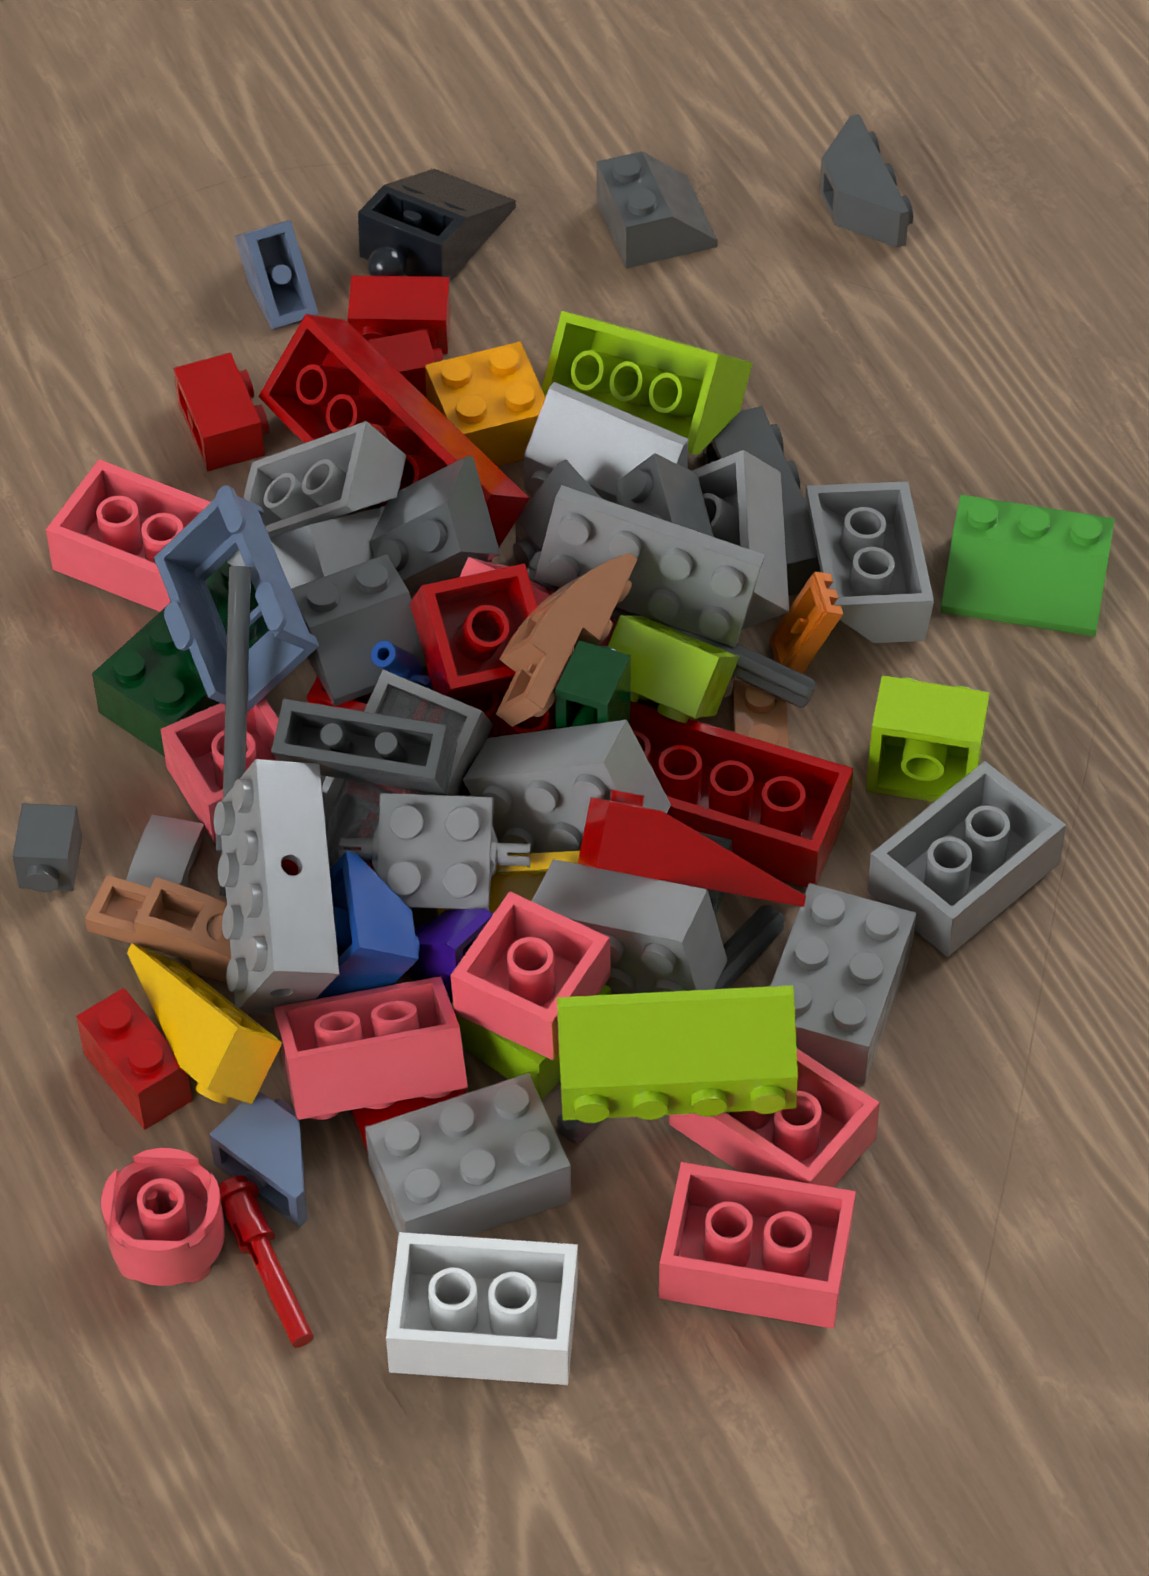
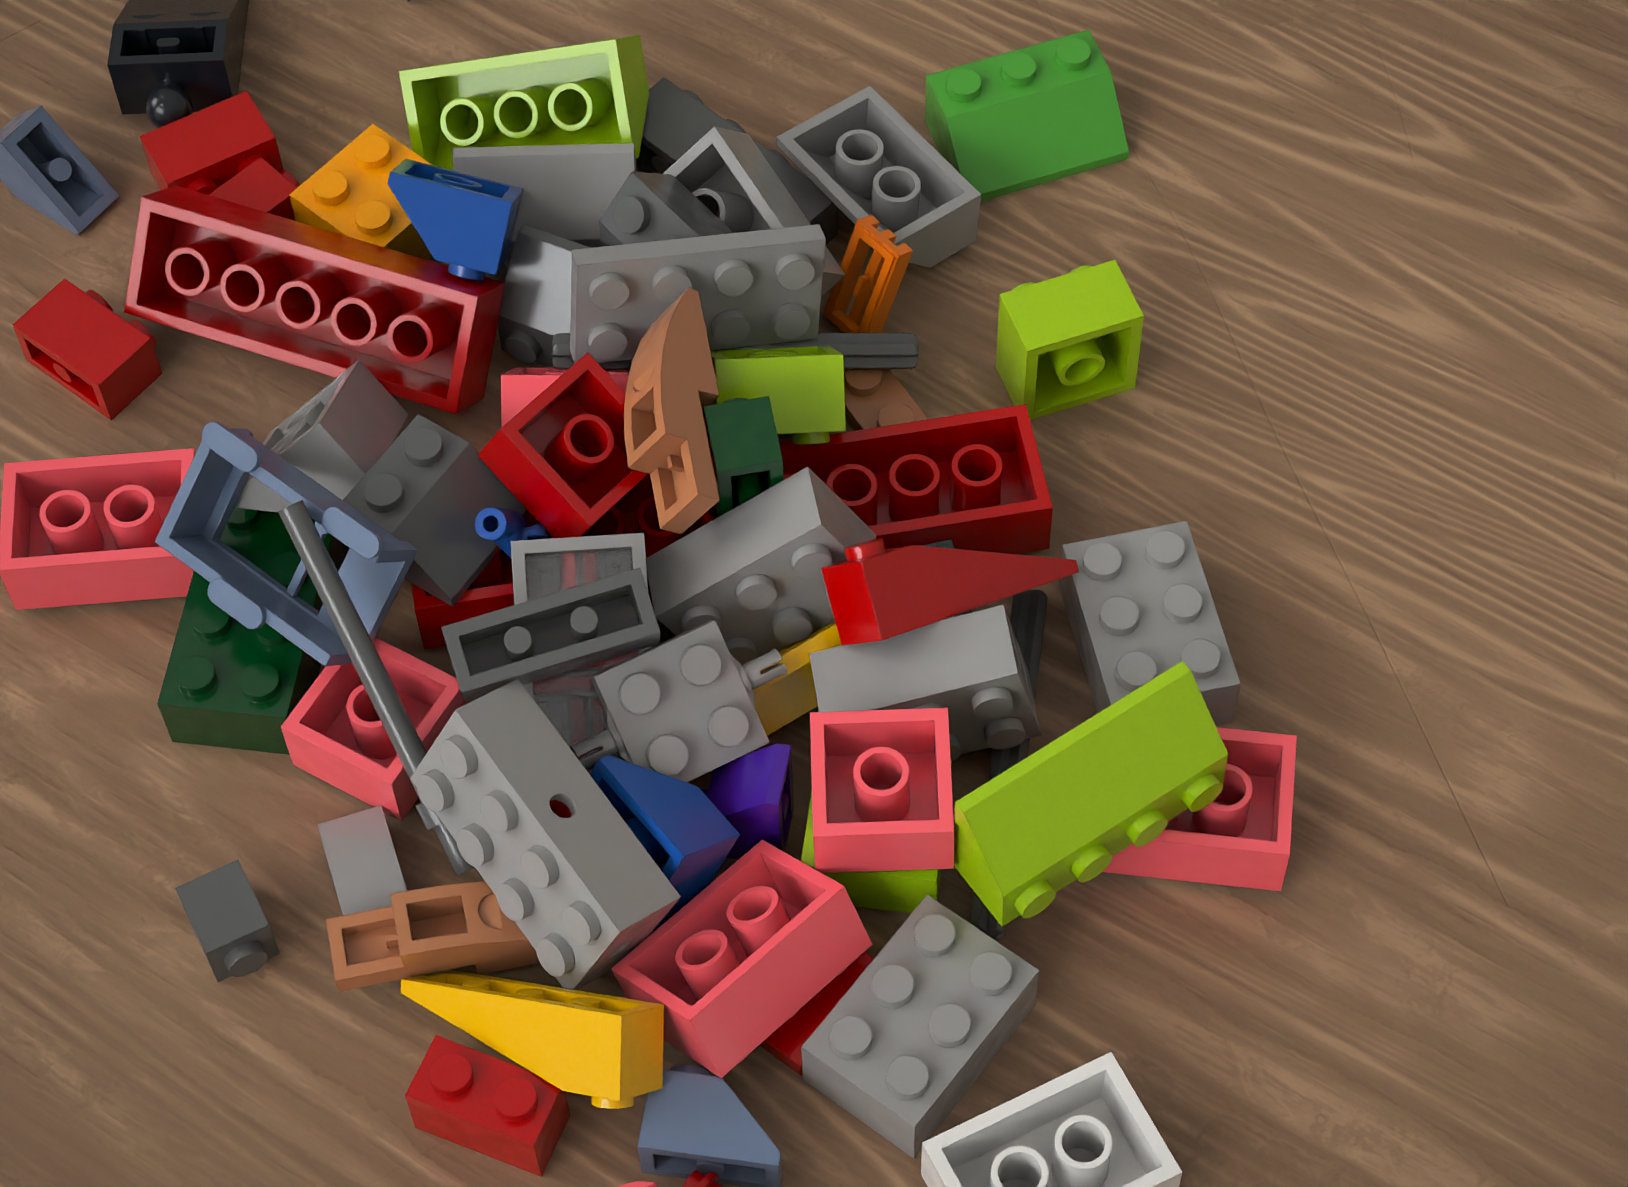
camera: 30 degrees left, 5 degrees up
(325, 478) = (275, 367): light grey slope -> none
(436, 526) = (430, 357): dark grey slope -> none
(520, 429) = (458, 215): none -> blue slope
(756, 1245) = (1270, 949): coral brick -> none
(967, 857) = (1184, 439): light grey brick -> none

